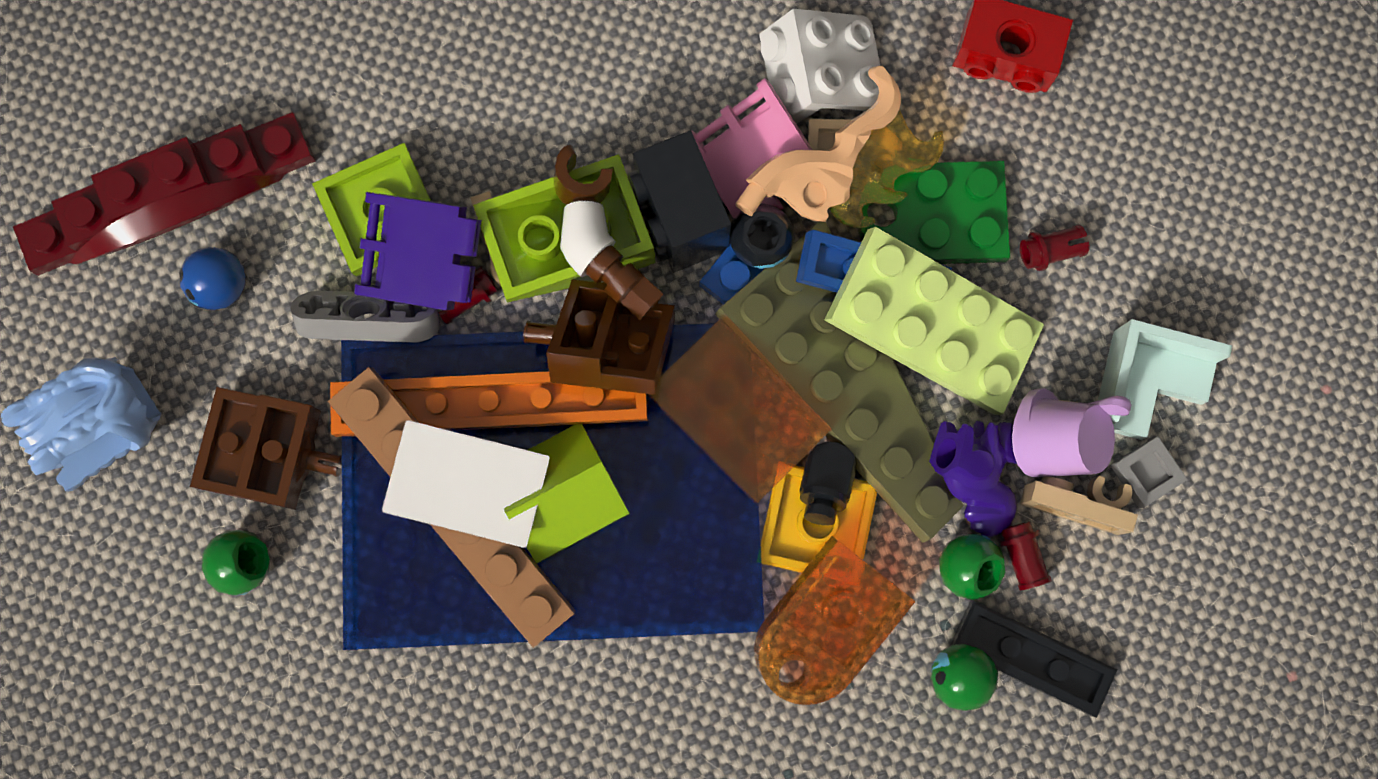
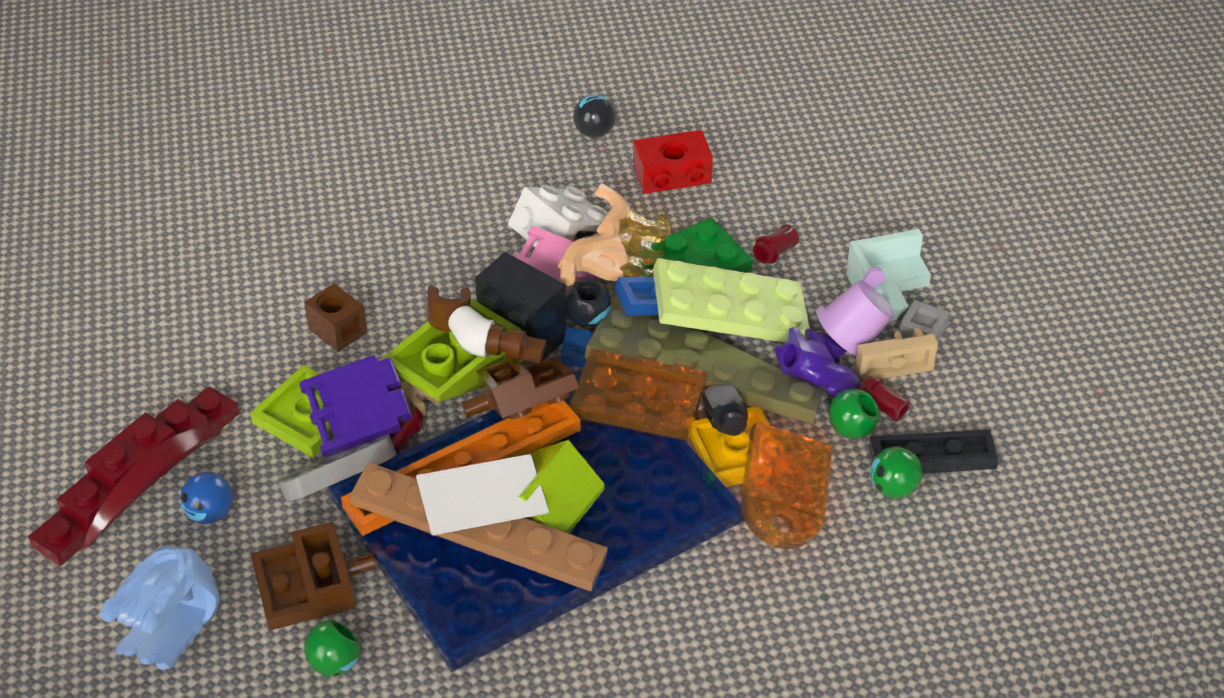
camera: 30 degrees left, 35 degrees down
(480, 103) = (336, 317): none -> reddish brown brick

